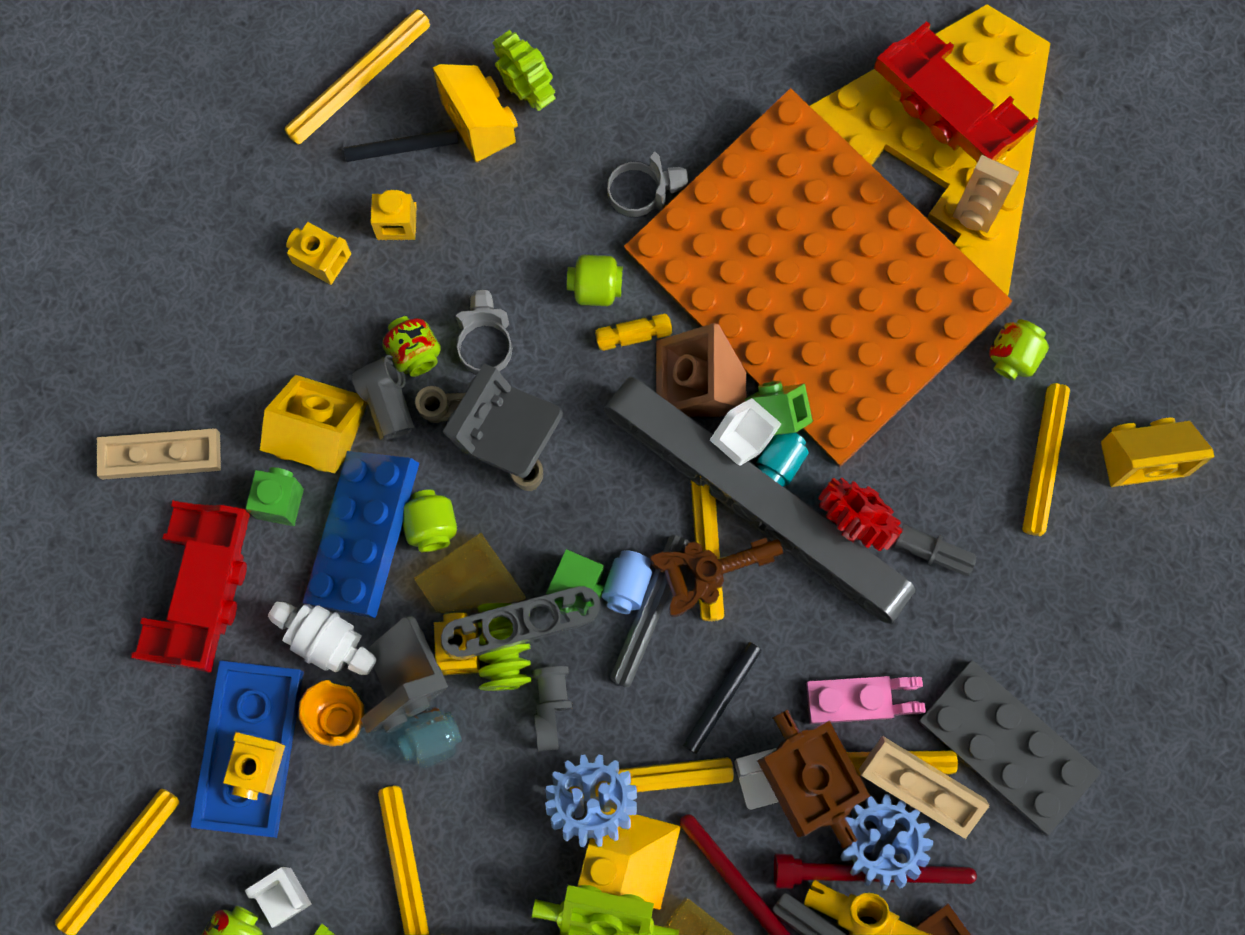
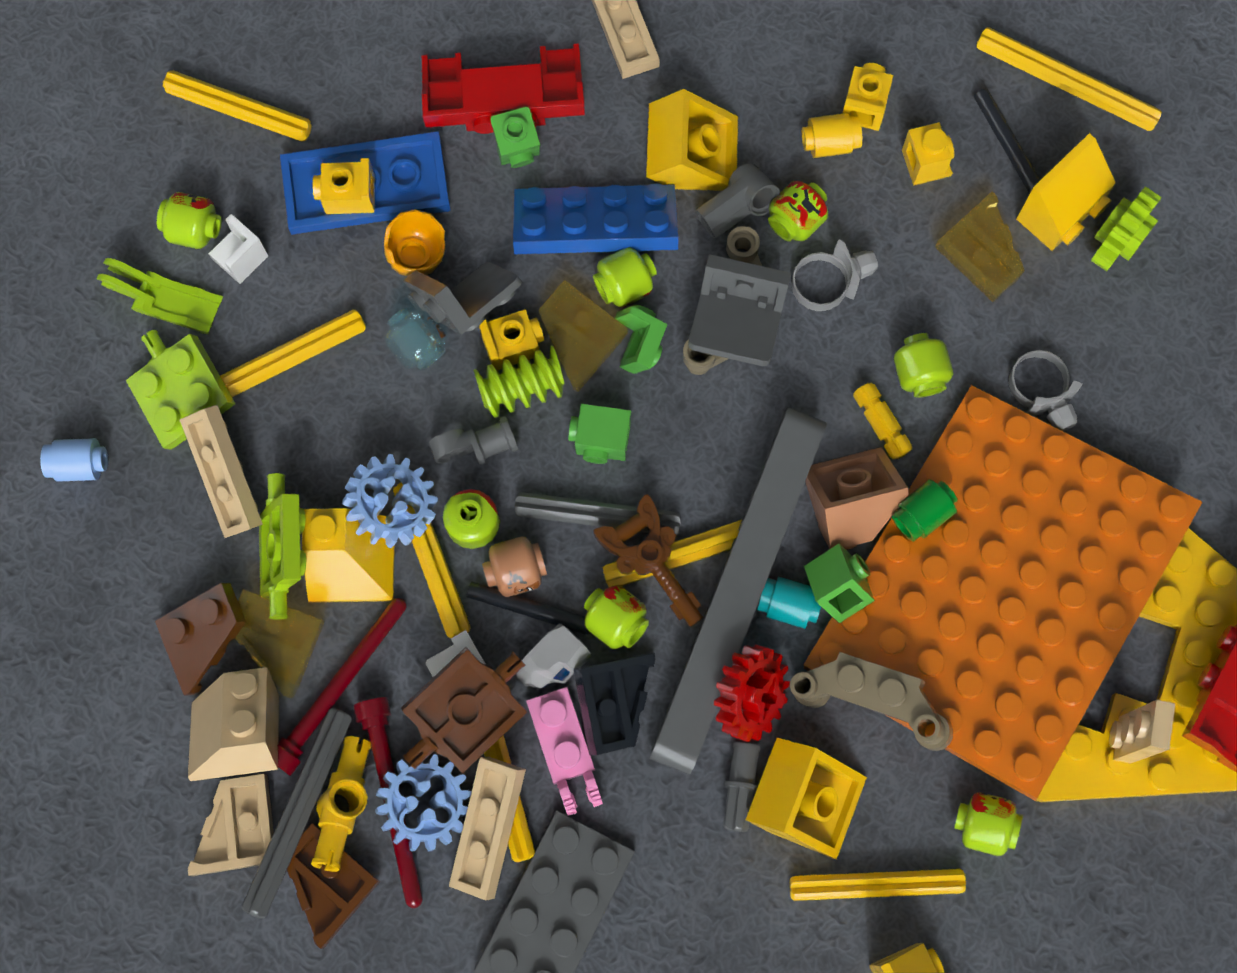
camera: 75 degrees right, 0 degrees up
(253, 584) = (516, 137): none -> bright green bracket
(275, 496) = (608, 131): bright green brick -> none
(322, 638) = (483, 214): white piece -> none
(346, 294) = (832, 135): none -> yellow brick
(496, 520) = (644, 345): none -> bright green bracket
(499, 197) = (983, 249): none -> clear yellow wing
(519, 617) = (537, 386): dark grey beam -> none
(622, 743) = (469, 532): none -> lime head
(627, 582) = (617, 482): light blue brick -> none
(681, 699) = (514, 566): none -> nougat head
(735, 315) = (925, 510): none -> green brick
(745, 431) = (801, 550): white panel -> none
(755, 618) = (615, 617): none -> lime head
(779, 684) = (553, 659): none -> light grey rock
(832, 642) = (612, 701): none -> black wing
(886, 405) = (877, 690): none -> dark tan plate
(959, 497) = (806, 797): none -> yellow slope

